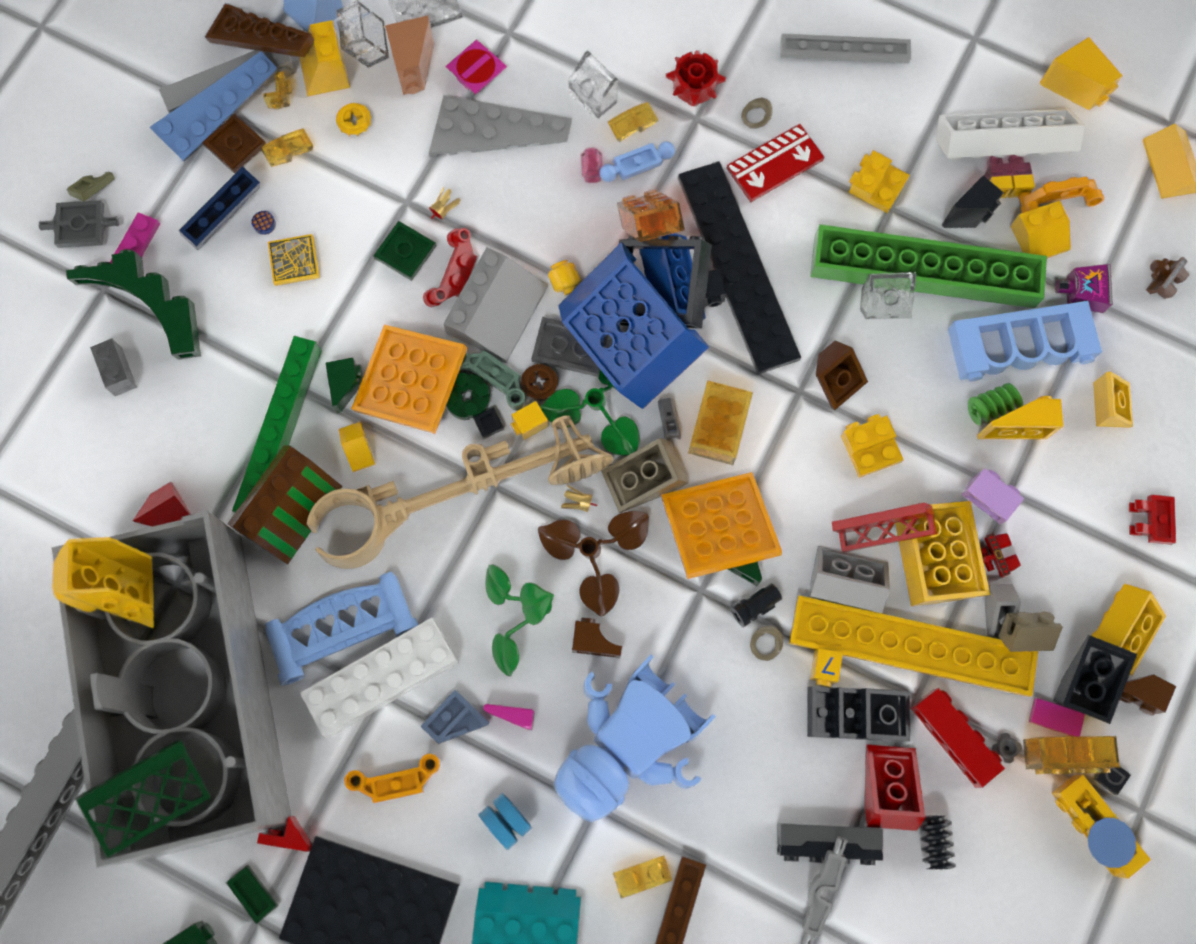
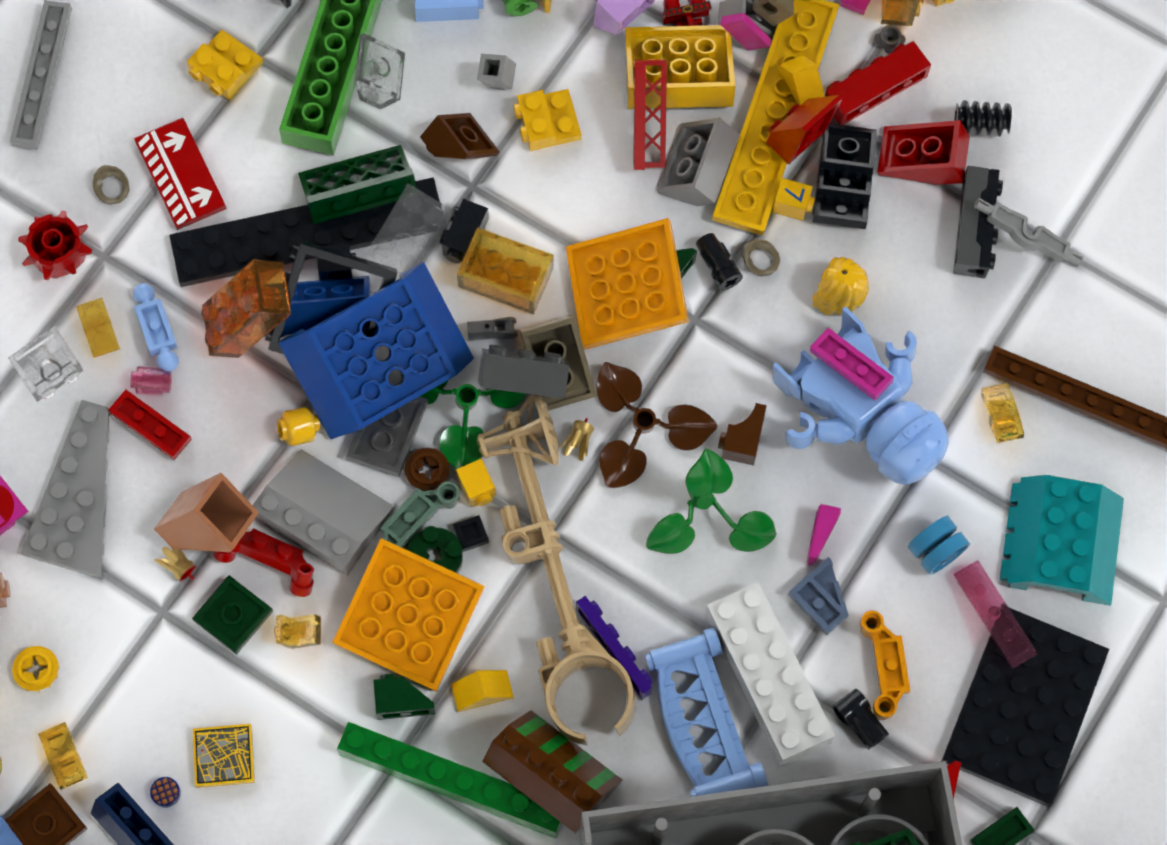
camera: 85 degrees left, 5 degrees down
(352, 756) = (856, 712): none -> black piece
(393, 298) = (298, 631): none -> clear yellow bracket
(404, 540) = (607, 636): none -> dark purple plate
(446, 877) = (995, 614): none -> clear pink tile
(473, 215) = (207, 517): none -> nougat slope
(555, 169) = (150, 424): none -> red plate
(620, 441) = (523, 372): none -> dark grey brick
(653, 723) = (851, 364): none -> dark pink plate
(737, 720) = (841, 290): none -> yellow hair
(744, 341) = (410, 230): none -> clear plate
(764, 386) = (463, 227): none -> black brick
(774, 301) = (359, 194): none -> dark green fence
(893, 666) = (802, 126): none -> red slope
(907, 395) = (496, 71): none -> light grey brick
(944, 666) = (802, 78): none -> yellow slope
(984, 608) = (745, 31): none -> dark pink tile

